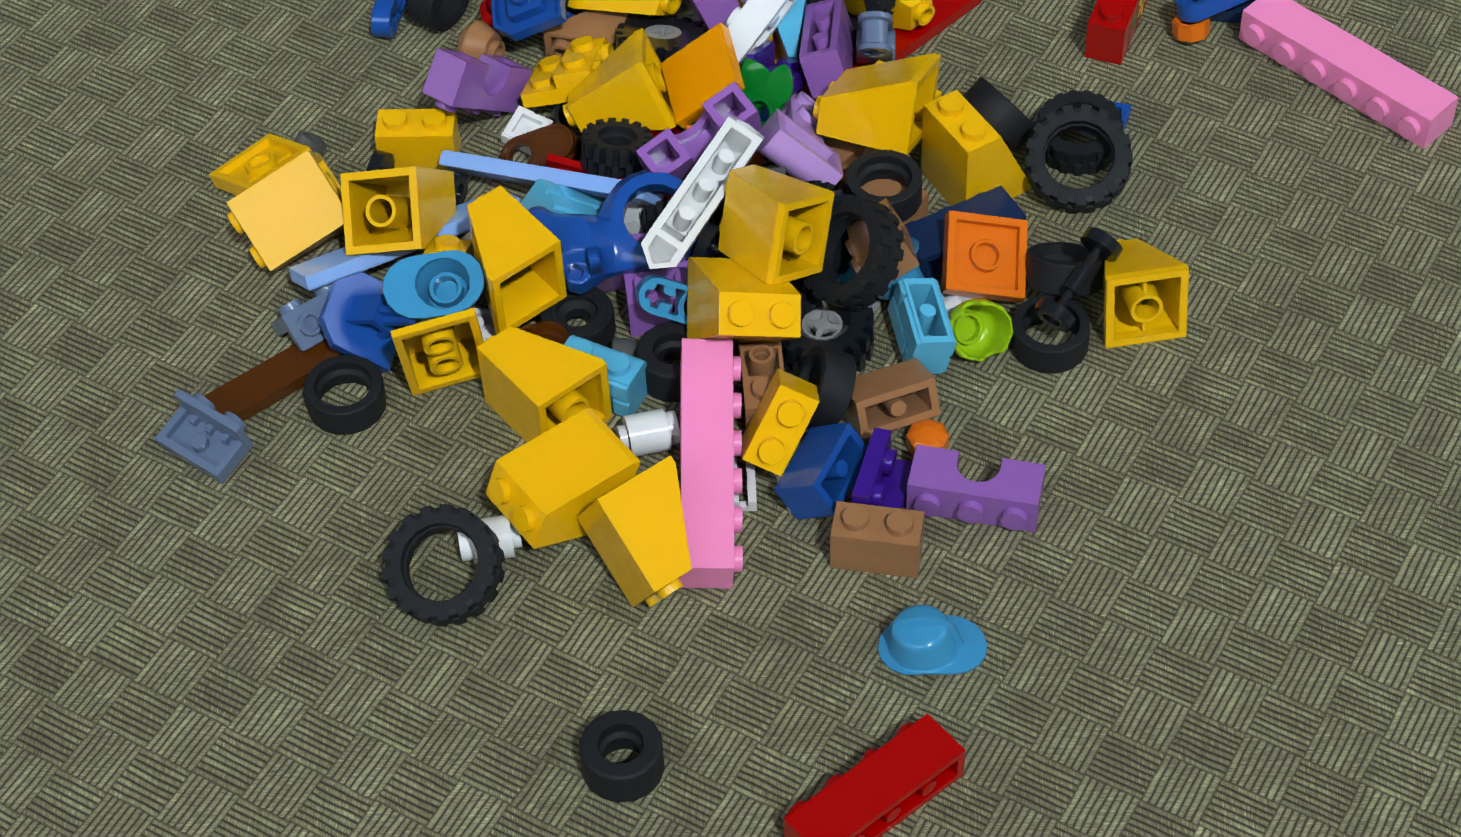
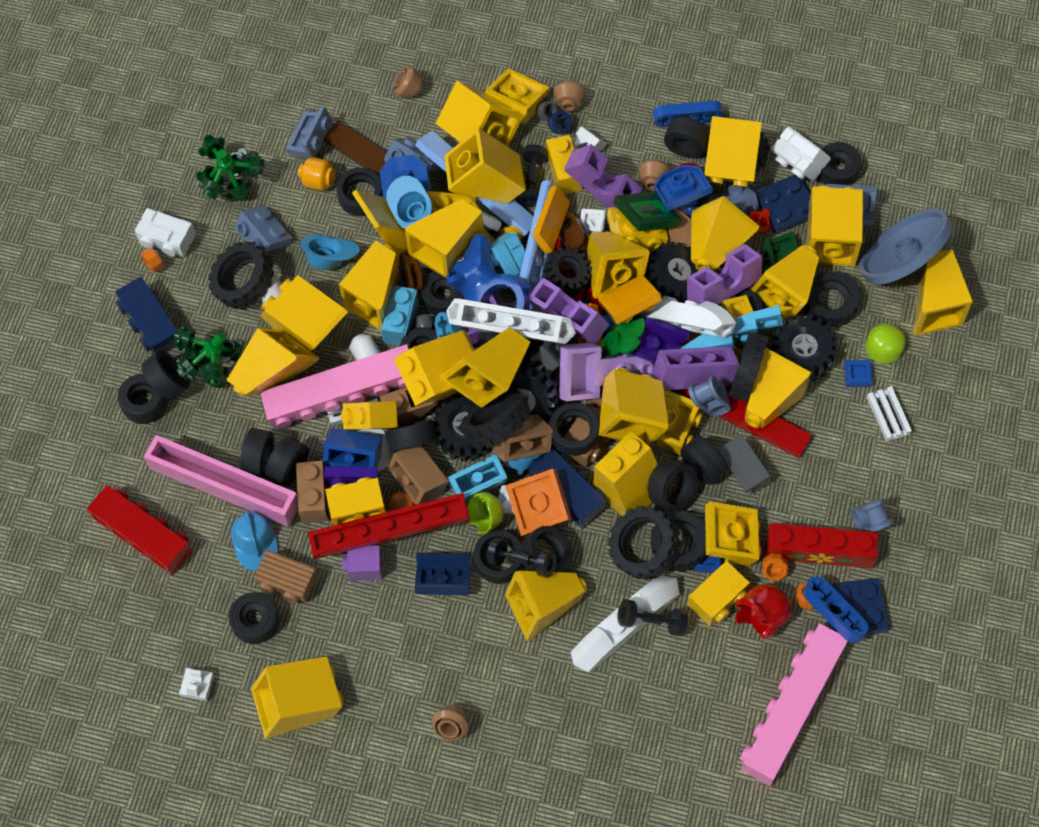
camera: 75 degrees right, 15 degrees up
(171, 296) = (408, 82): none -> medium nougat cone
(218, 542) = (230, 163): none -> dark green plant
(288, 439) = (317, 174): none -> light orange head
(297, 111) = (569, 95): none -> medium nougat cone
(302, 674) = (165, 233): none -> white brick
(337, 133) = (561, 115): none -> dark blue bush
(348, 703) = (152, 259): none -> orange tile
(356, 540) = (262, 228): none -> sand blue bracket
(390, 98) = (586, 136): none -> white tile
(446, 445) = (327, 252): none -> dark azure piece
(463, 723) = (146, 316): none -> dark blue brick
(516, 153) = (551, 219): none -> light orange tile
(555, 44) = (646, 211): none -> dark green tile
(574, 619) = (211, 350): none -> dark green plant
(585, 700) = (162, 375): none -> black tyre
(800, 578) = (256, 451): none -> black tyre
(816, 557) = (283, 460): none -> black tyre
(820, 655) = (222, 480): none -> bright pink brick
(929, 461) = (354, 500): none -> yellow brick
(966, 64) = (704, 460): none -> black tyre
(978, 436) = (388, 526): none -> red tile
(980, 41) = (745, 465): none -> dark grey hinge
(1017, 599) = (285, 576): none -> medium nougat brick
(1064, 402) = (442, 574): none -> dark blue bracket
(1083, 635) = (251, 603): none -> black tyre
(1088, 66) = (732, 533): none -> yellow plate
(1142, 47) = (774, 567): none -> orange tile
(1169, 109) = (718, 594): none -> yellow brick
(1174, 761) = (196, 684): none -> white tile
(1189, 216) = (610, 636): none -> white brick
(1194, 179) = (676, 622): none -> black wheel
(1209, 62) = (764, 608): none -> red hair
(1231, 620) = (296, 695): none -> yellow slope
(1308, 431) = (450, 723): none -> medium nougat cone

